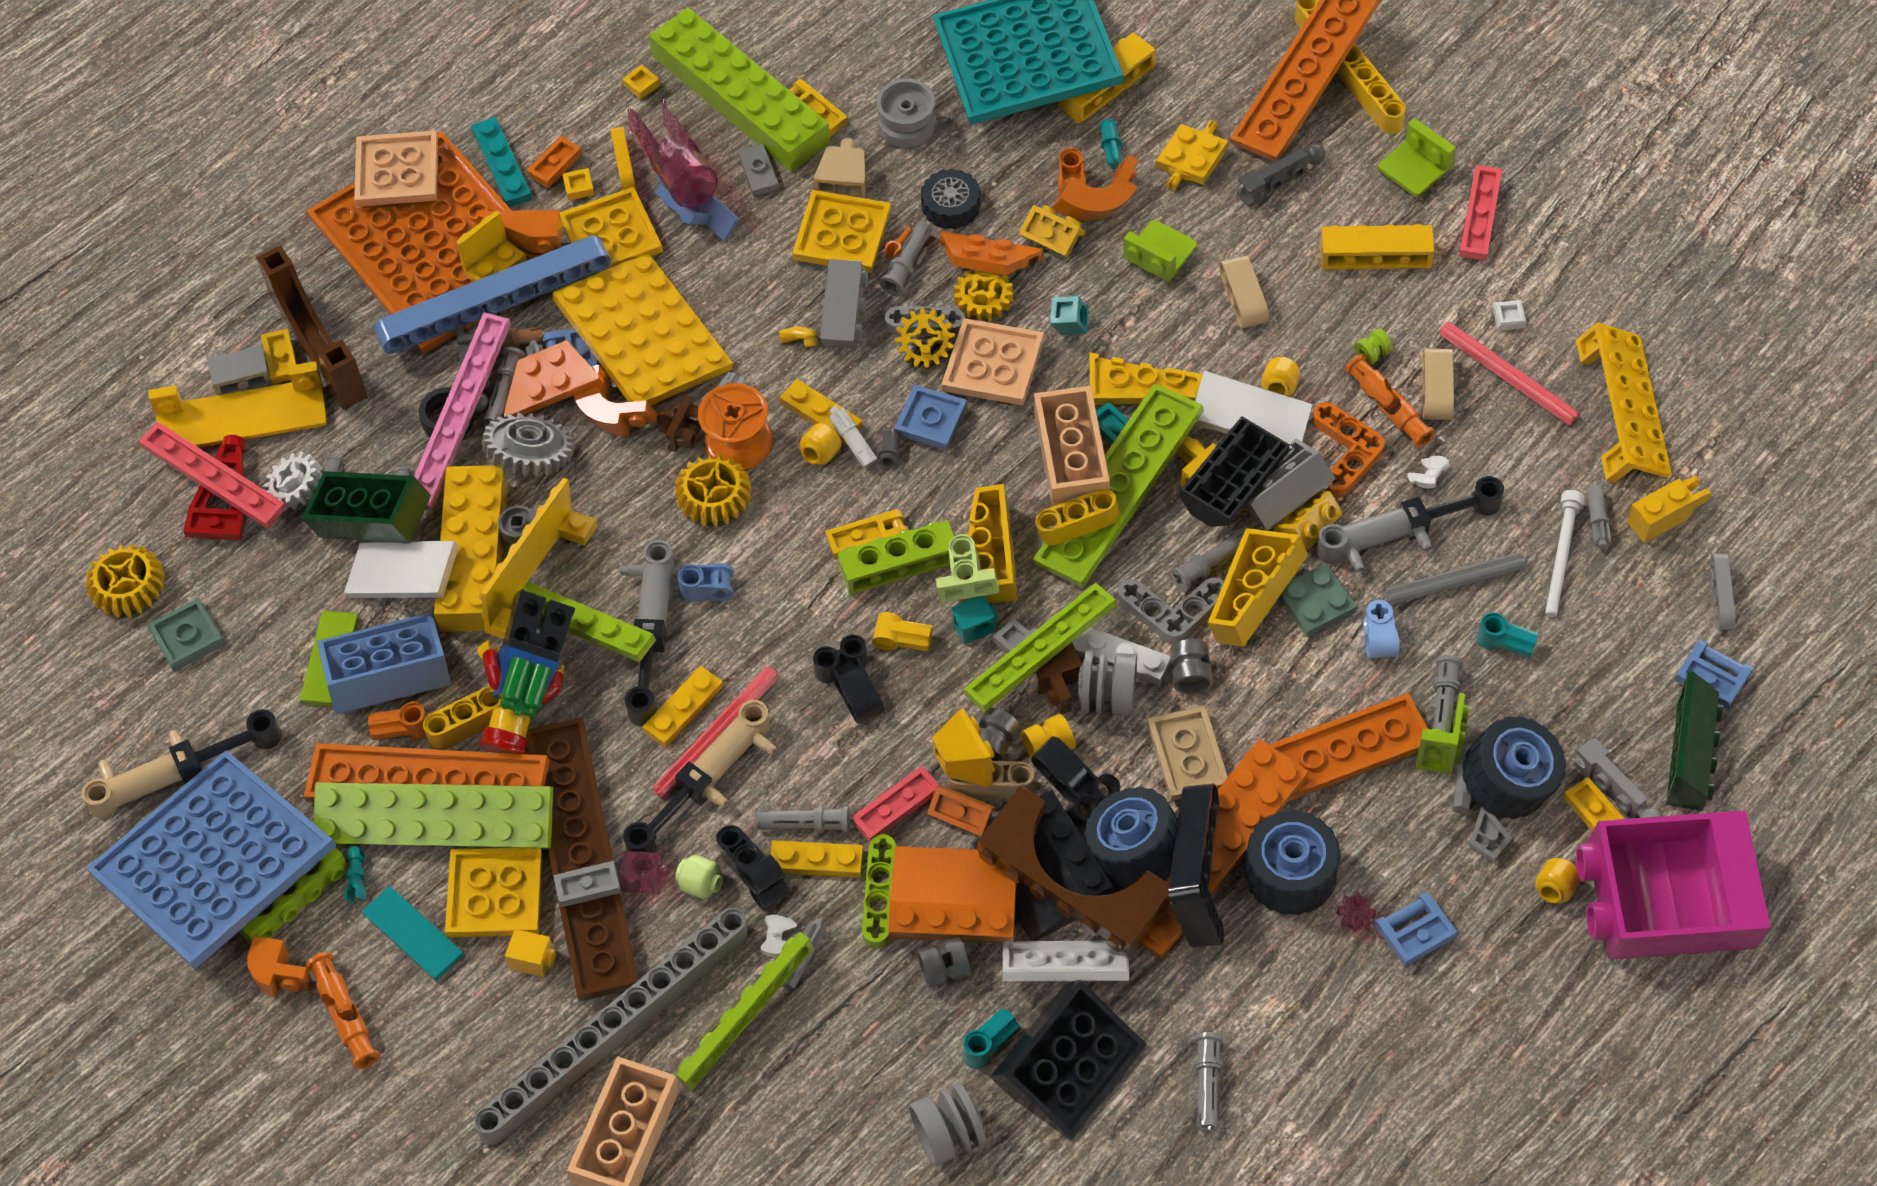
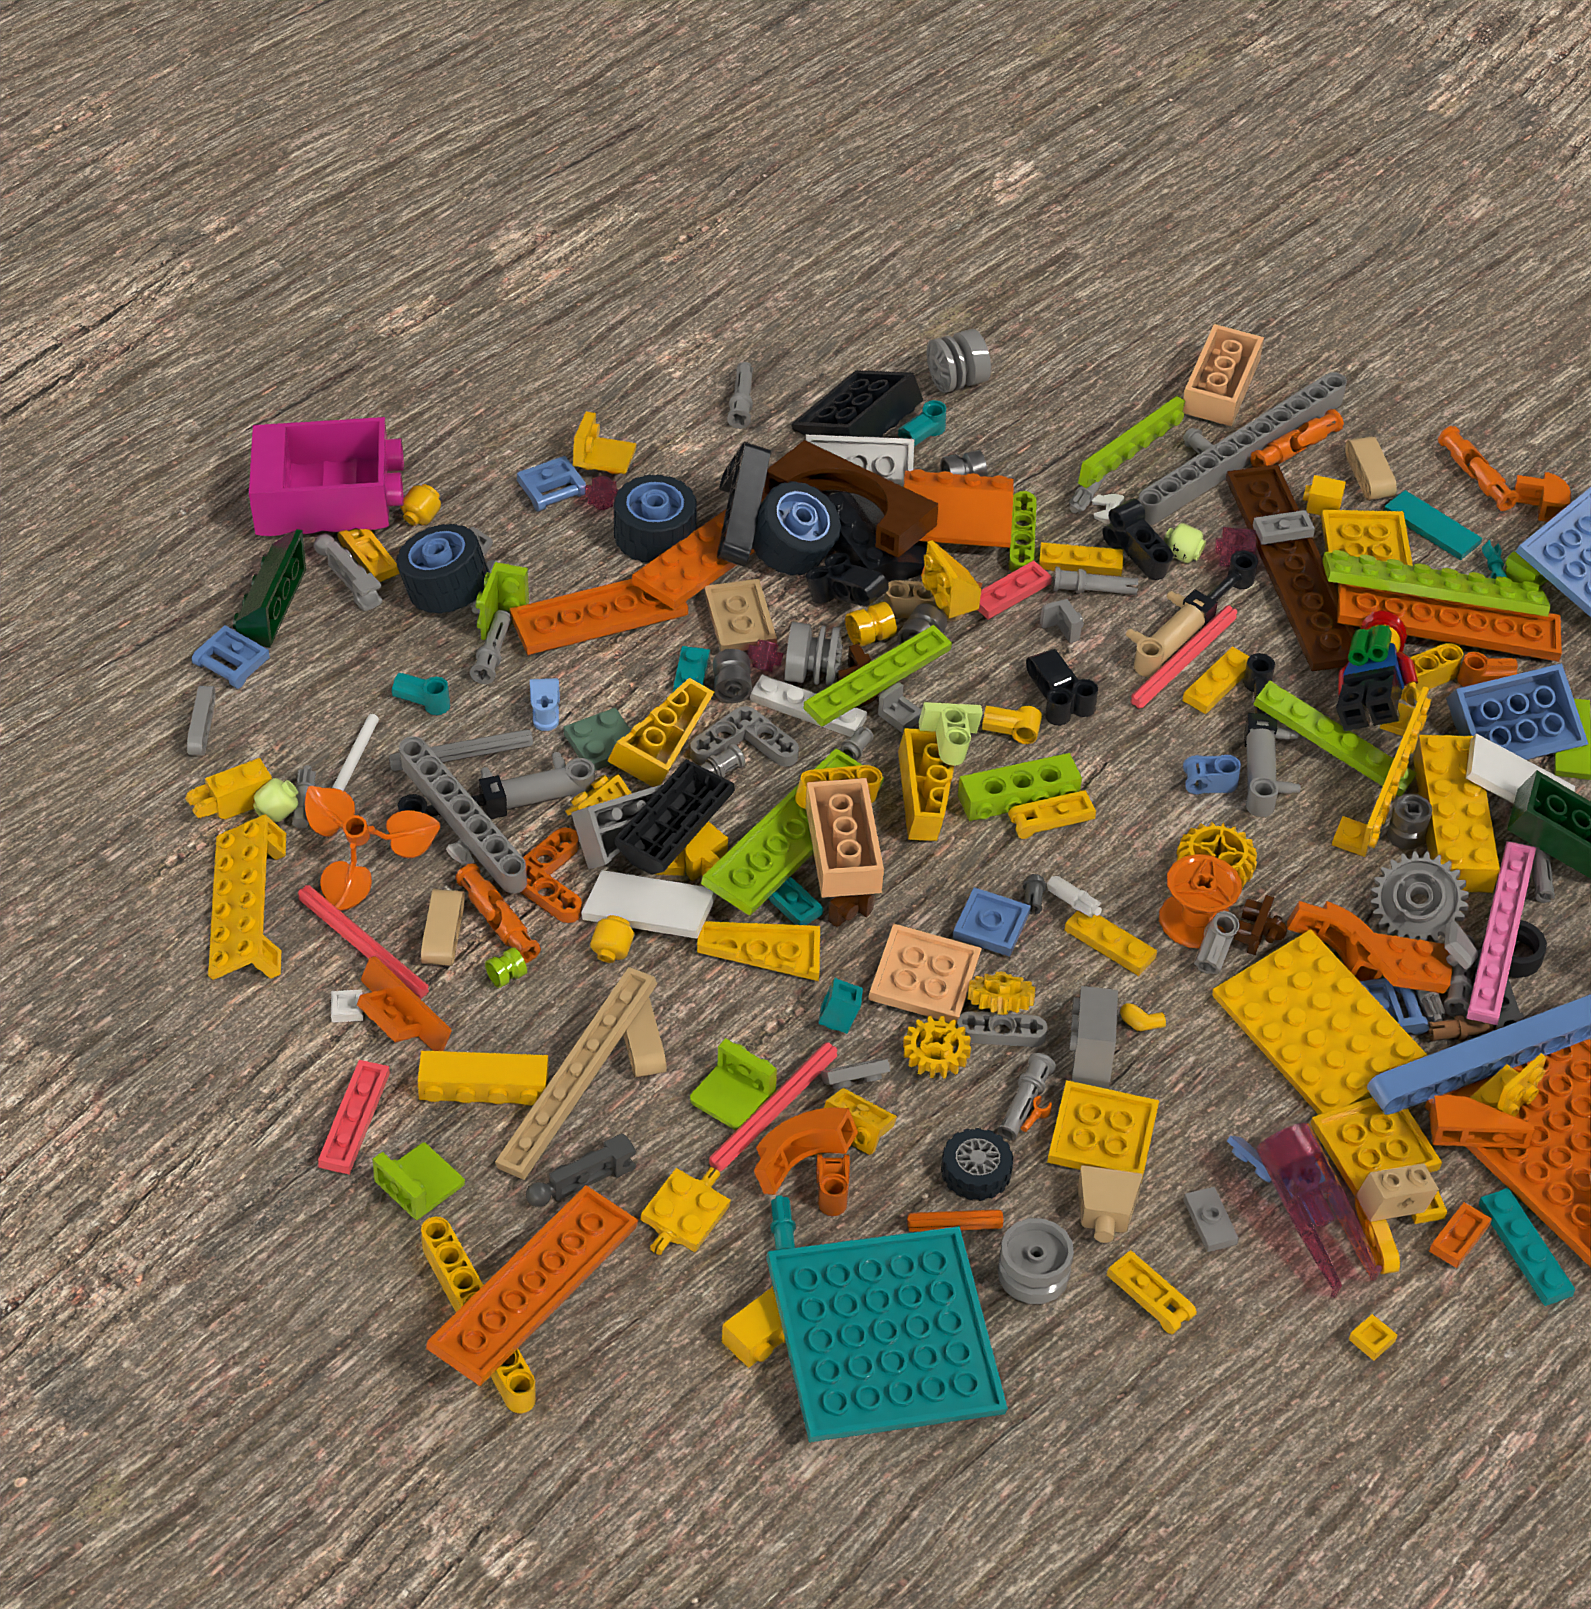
camera: 175 degrees right, 10 degrees down
(468, 1003) = (1370, 468): none -> tan beam
(501, 391) = (1459, 946): none -> light grey piece
(549, 1038) = (1309, 433): none -> orange piece
(604, 160) = (1397, 1192): none -> tan brick
(664, 1034) = (1195, 439): none -> light grey pin
(740, 89) = (1253, 1315): lime brick -> none
(820, 444) = (1112, 893): yellow head -> none
(843, 771) = (1065, 616): none -> light grey bracket
(969, 157) = (946, 1219): none -> orange axle
(987, 255) = (933, 1087): orange wing -> none
(1054, 268) = (868, 1070): none -> light grey plate
(1063, 596) = (854, 746): none -> light grey pin
(1115, 251) = (772, 1107): none -> coral axle
(1161, 702) = (765, 655): none -> clear pink gear
(1233, 687) = (692, 664): none -> teal plate
(1294, 243) = (576, 1073): none -> tan plate
(1361, 971) = (600, 453): none -> yellow bracket
(1440, 475) = (463, 814): none -> light grey beam
(1466, 299) = (399, 1009): none -> orange bracket
(1534, 426) = (333, 809): none -> orange plant
(1620, 494) = (276, 799): none -> yellowish green head

